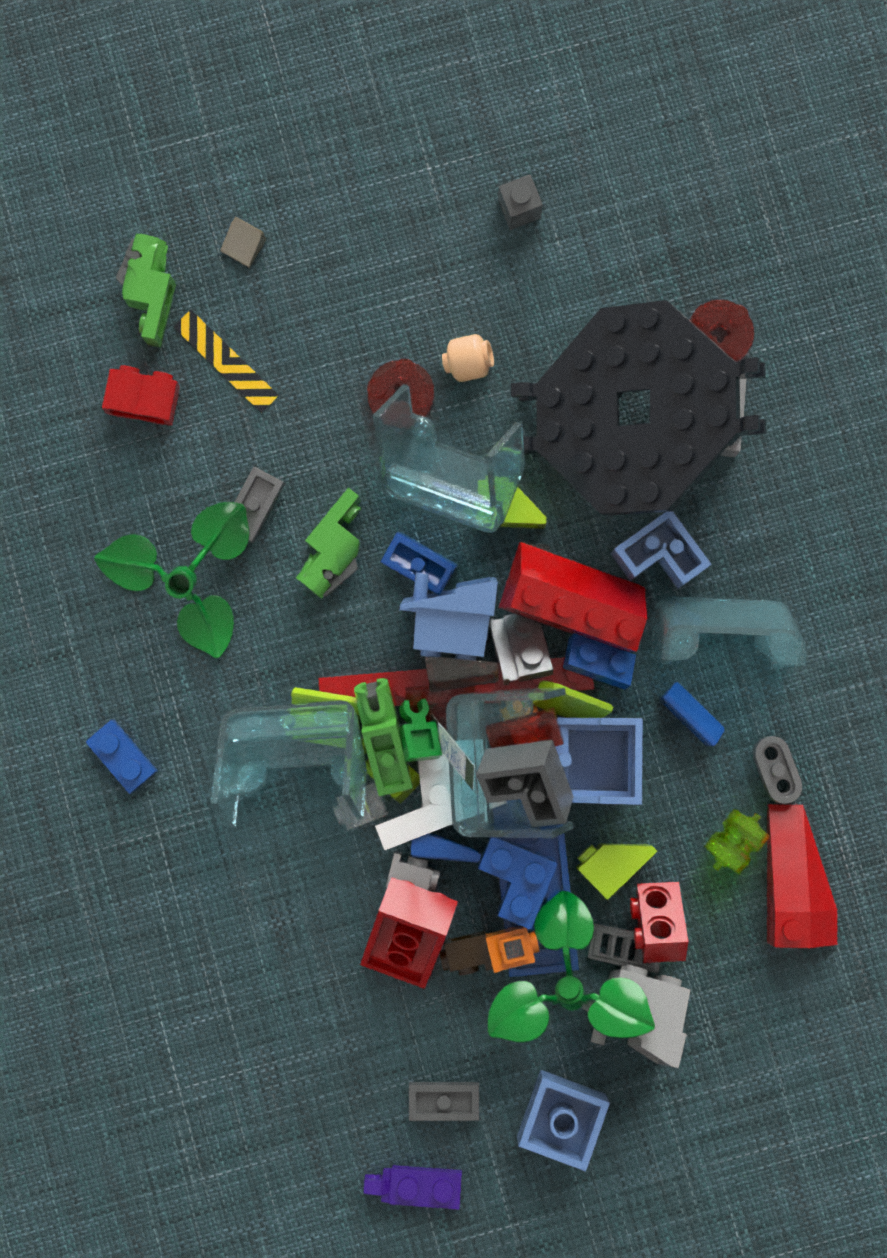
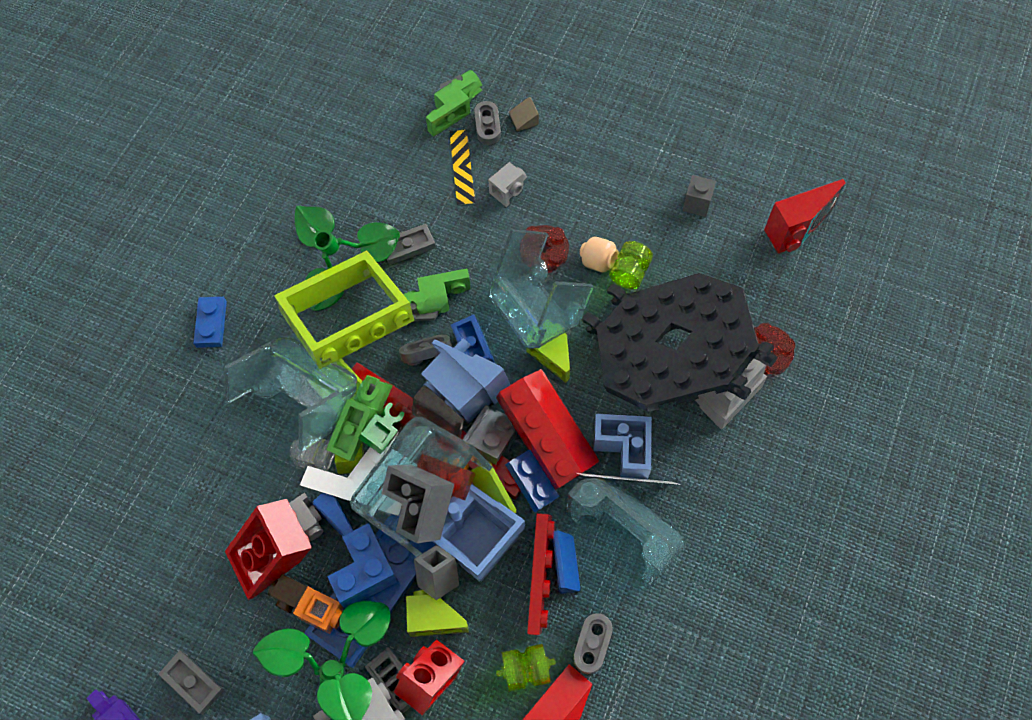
camera: 35 degrees right, 20 degrees down
(141, 396) = (399, 148): red brick -> none
(211, 286) = (488, 124): none -> flat silver plate
(217, 623) = (331, 283): none -> lime window
(299, 347) = (506, 183): none -> light grey brick
(376, 608) = (420, 350): none -> flat silver plate
(512, 339) = (631, 265): none -> clear neon green wheel
(593, 828) = (436, 572): none -> dark grey brick
(645, 165) = (800, 215): none -> red slope
(677, 733) = (540, 585): none -> red wing
(693, 588) = (613, 477): none -> white sticker

